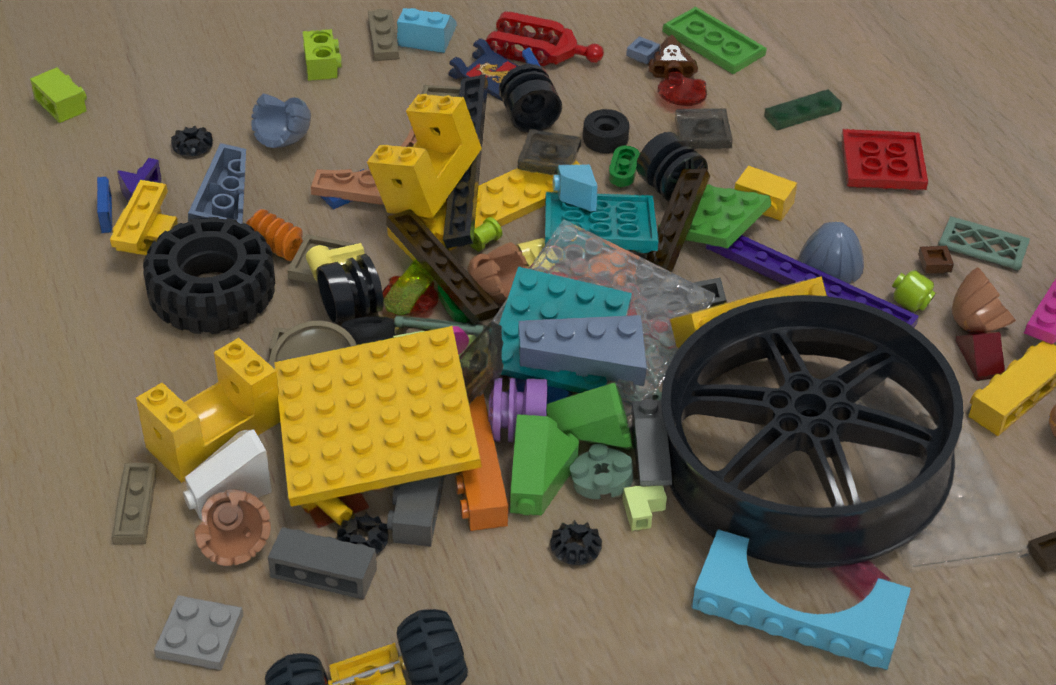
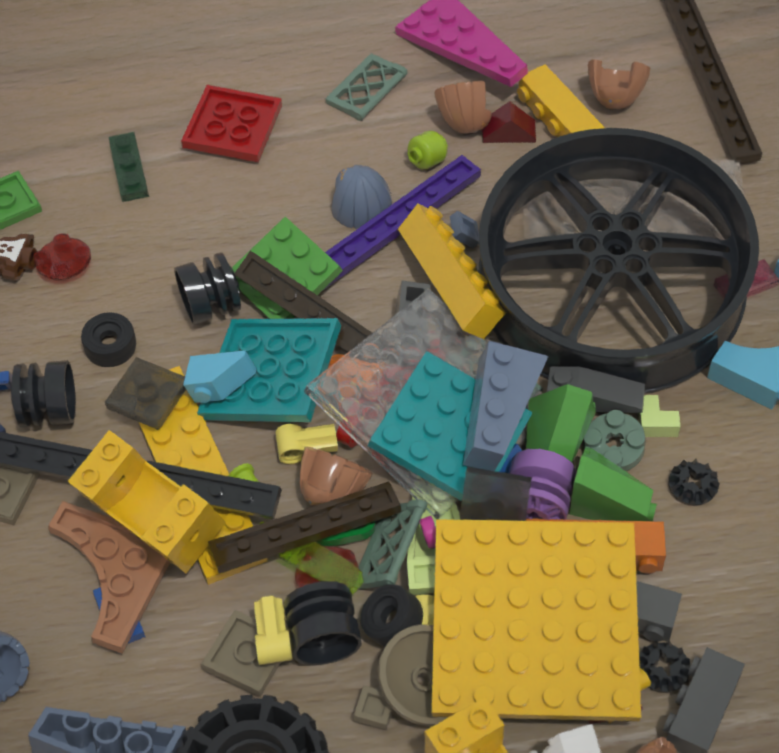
camera: 75 degrees left, 10 degrees up
(280, 235) = (191, 697): orange piece -> none
(623, 166) = (174, 335): green plate -> none
(704, 128) = (134, 254): clear smoke plate -> none
(779, 189) = (253, 223): yellow brick -> none
(935, 259) = (385, 124): reddish brown plate -> none

